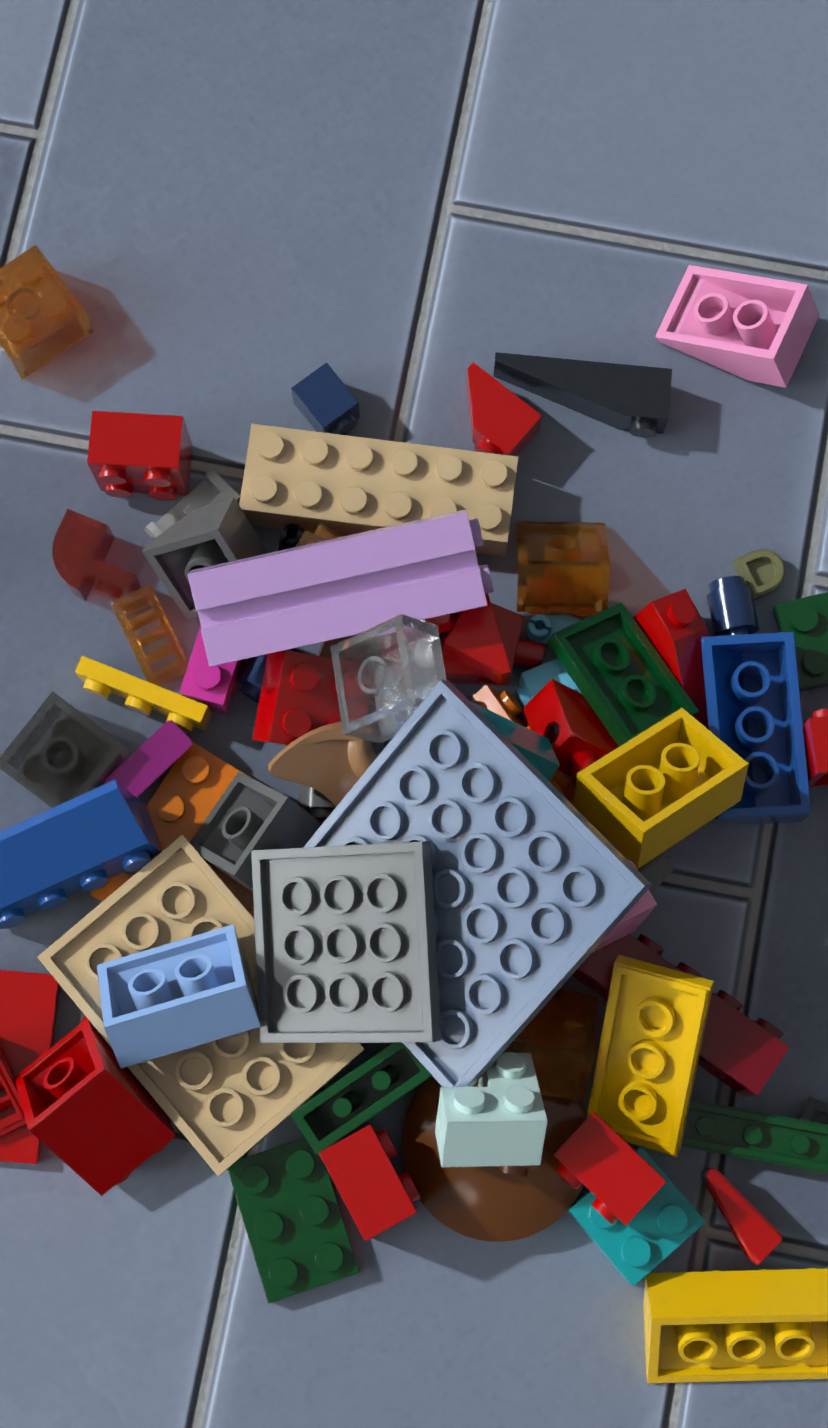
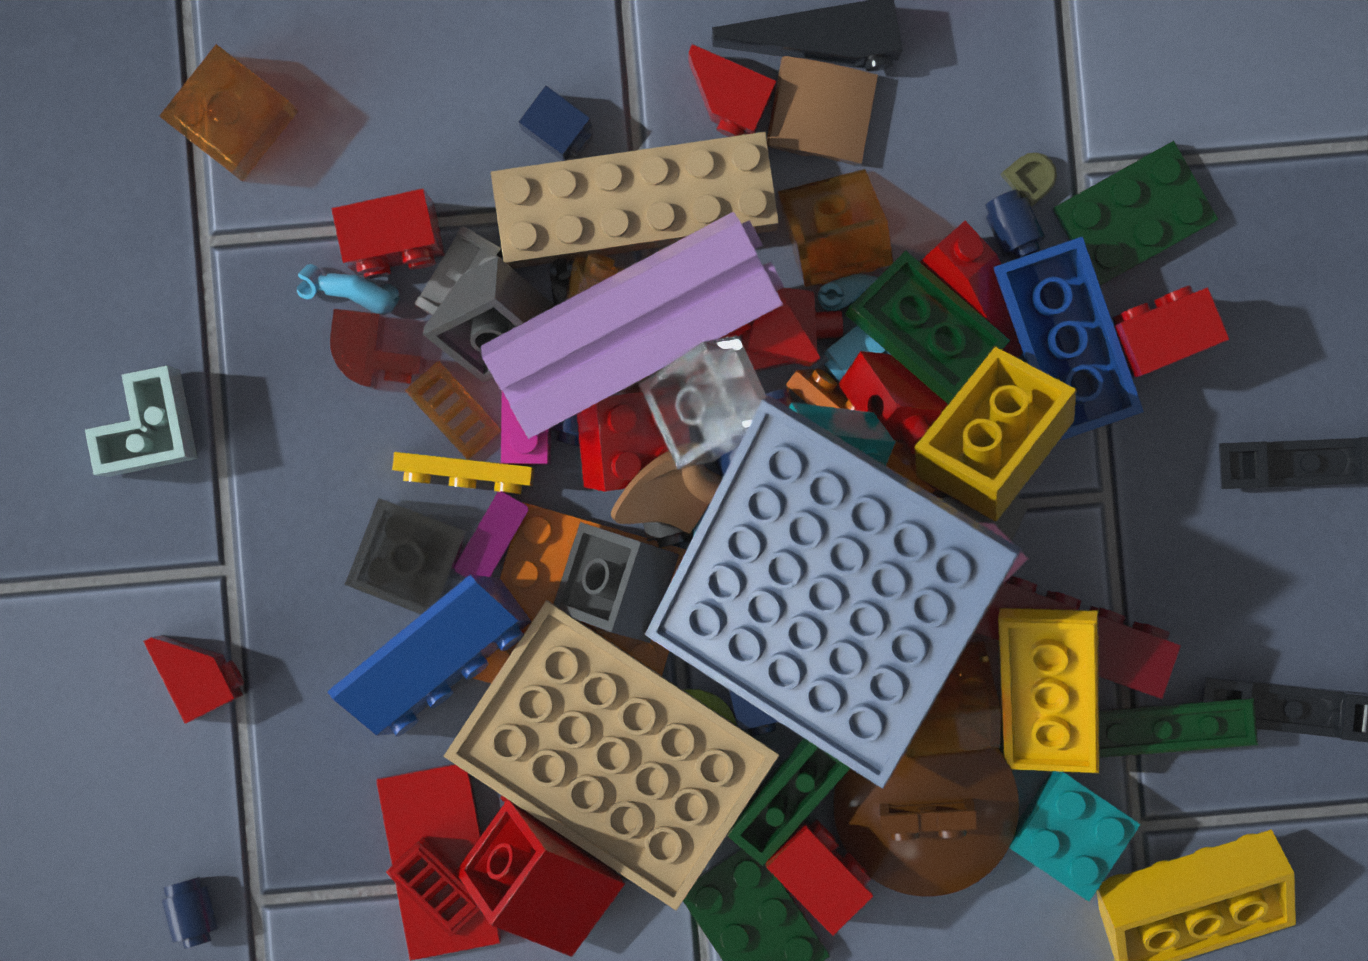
camera: 15 degrees left, 10 degrees up
(91, 496) = (356, 288): none -> medium azure arm
(176, 996) = (589, 758): light blue slope -> none
(346, 944) = (738, 669): plate -> none
(495, 1122) = (927, 796): light aqua brick -> none
(578, 457) = (821, 110): none -> medium nougat slope
(609, 1169) = (1041, 806): red brick -> none
(747, 1224) = (1180, 814): red slope -> none

